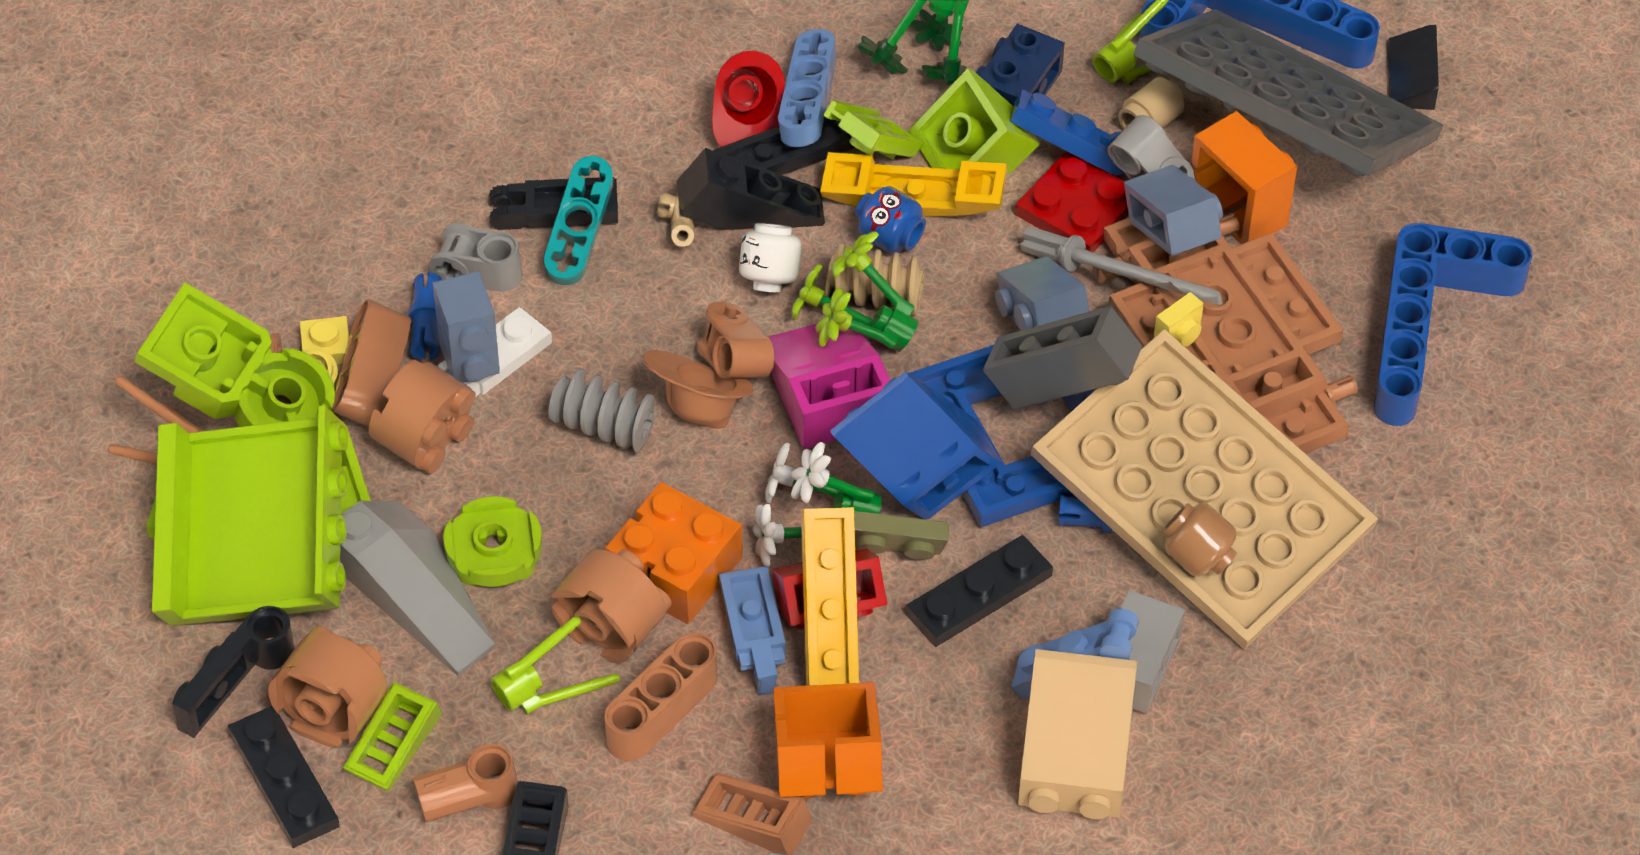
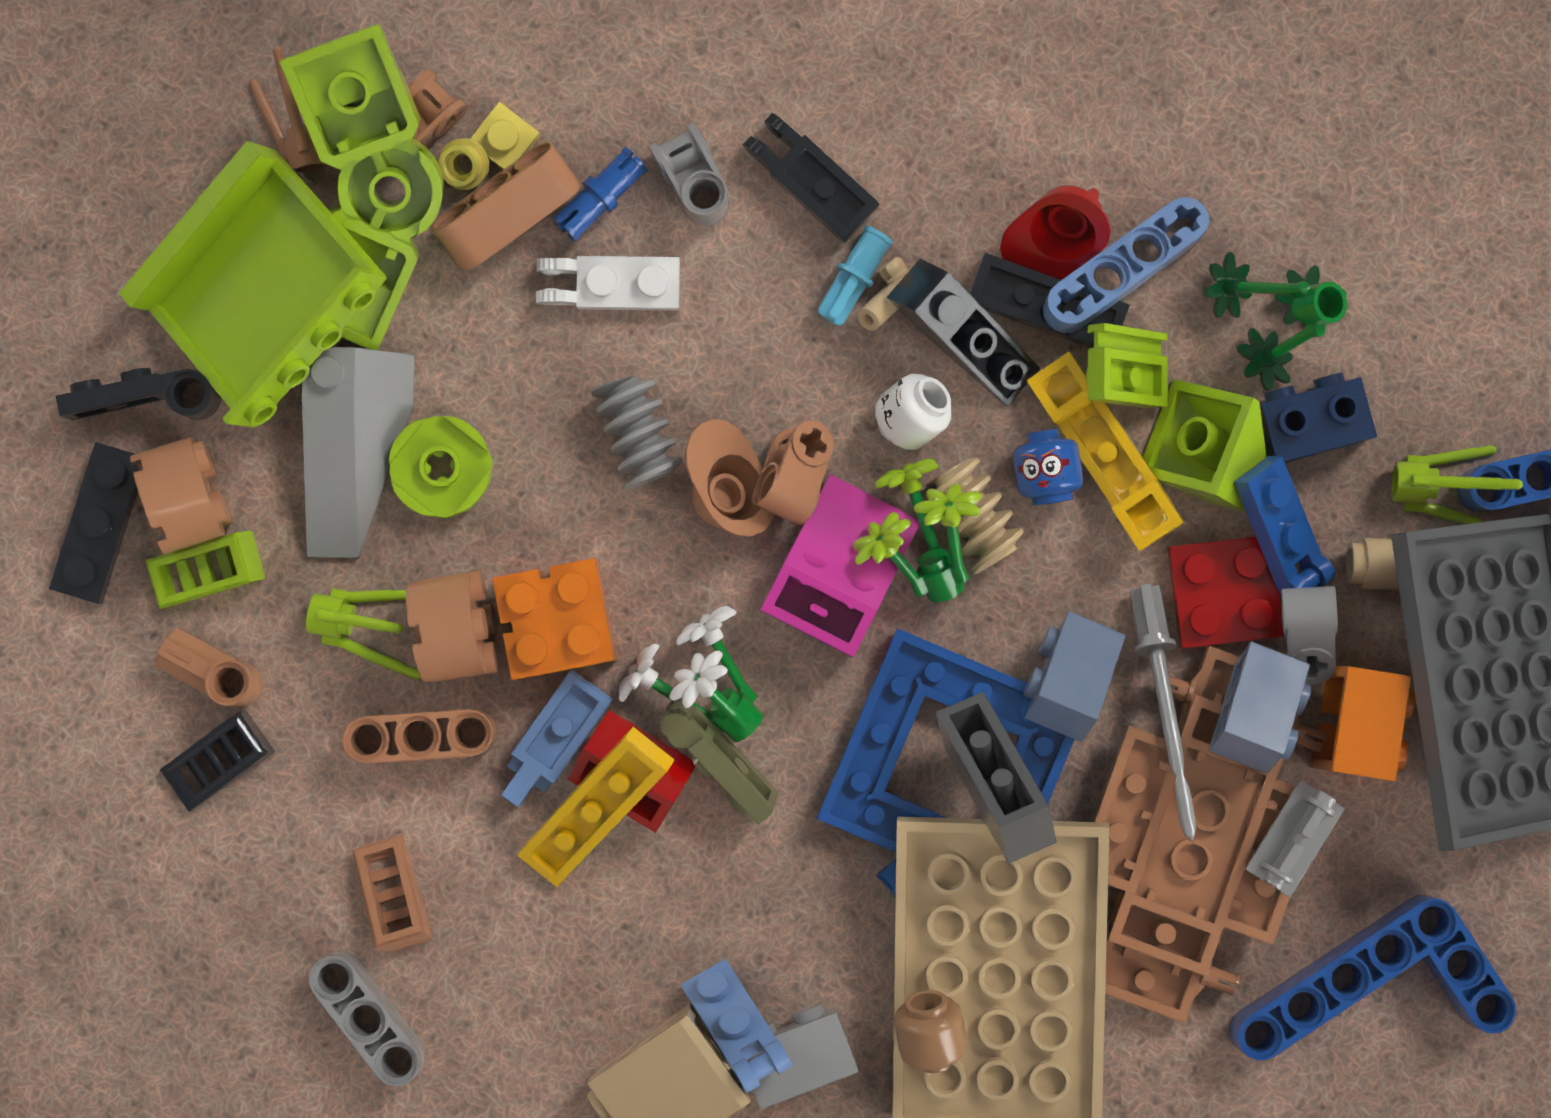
camera: 40 degrees right, 35 degrees up
(423, 414) = (488, 303): nougat brick -> none
(466, 327) = (581, 268): sand blue brick -> none
(576, 186) = (762, 228): teal beam -> none
(644, 229) = (854, 276): none -> medium azure axle
(828, 739) = (486, 910): orange piece -> none
(917, 444) = (812, 735): blue slope -> none
(979, 590) = (754, 872): black plate -> none
(1181, 319) = (1136, 826): light yellow plate -> none
(1280, 256) = (1295, 838): none -> light grey hinge

